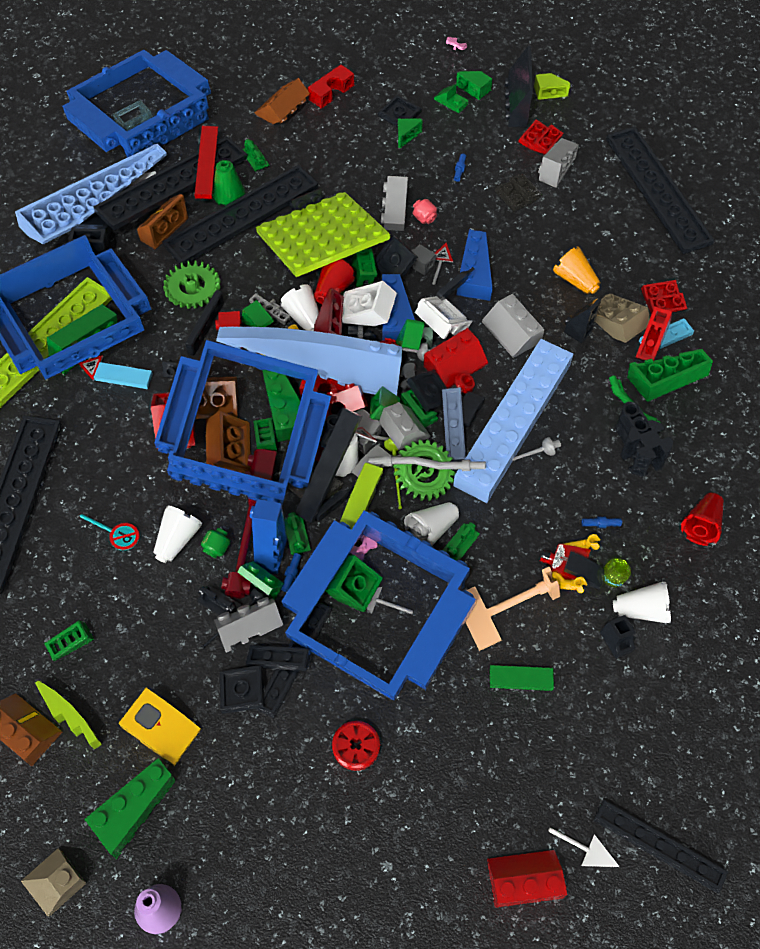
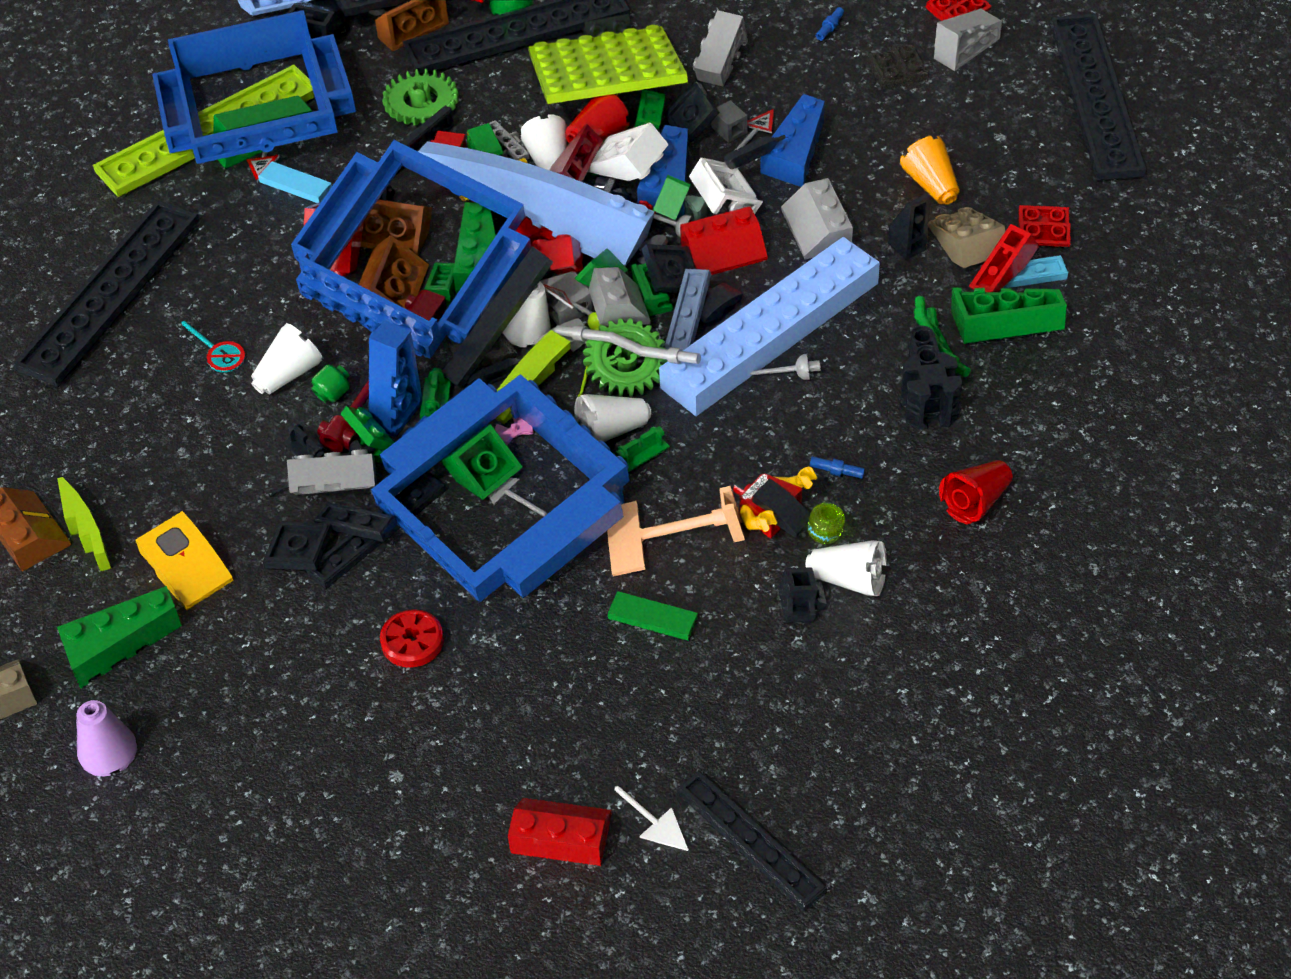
camera: 20 degrees right, 10 degrees down
(72, 646) = (132, 449): green slope -> none
(425, 211) = (757, 66): coral head -> none
(464, 381) = (724, 272): red hat -> none

